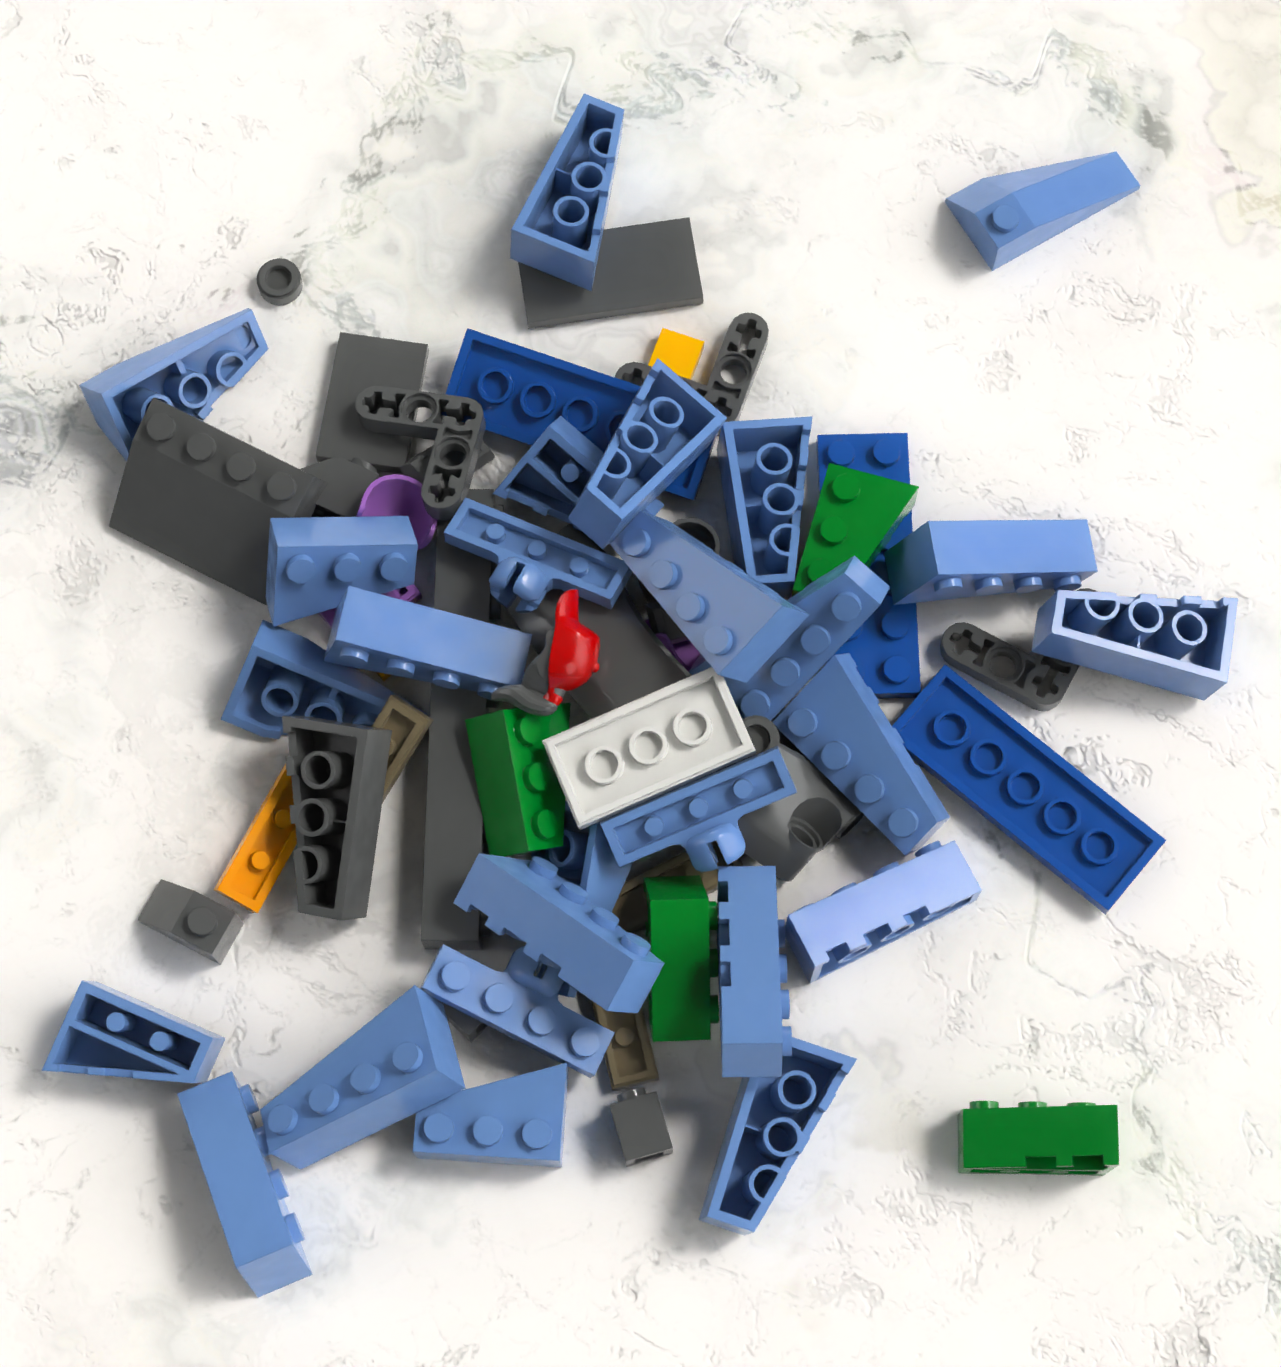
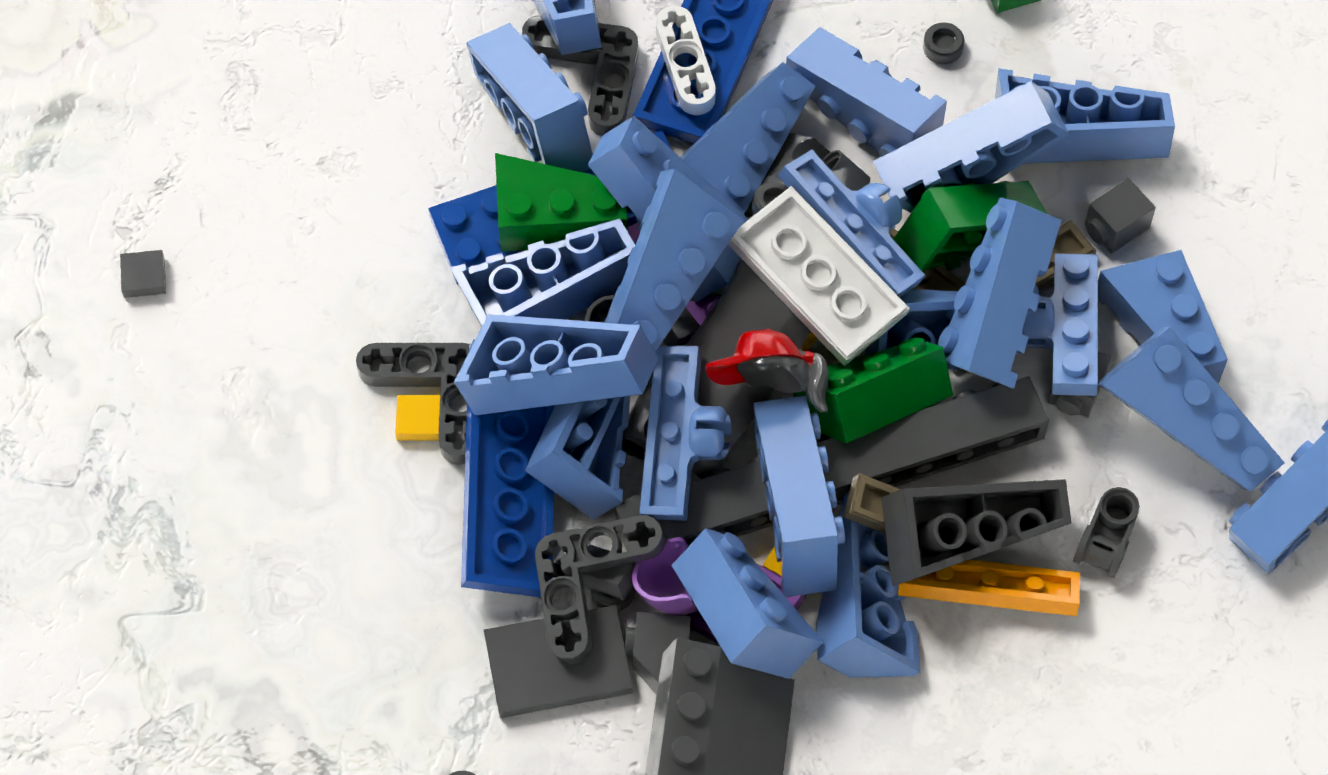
camera: 110 degrees left, 10 degrees down
(130, 1039) = (1240, 626): medium blue wedge -> none
(192, 920) = (1111, 625): dark grey slope -> none
(281, 954) = (1107, 538): none -> dark grey piece
(569, 204) = (292, 538): medium blue wedge -> none
(635, 273) = (352, 502): dark grey tile -> none
(929, 155) = (143, 273): none -> dark grey tile
(934, 1035) = (943, 43): none -> dark grey tile
(1024, 749) = (679, 75): none -> white beam
(1029, 206) = (169, 176): medium blue wedge -> none

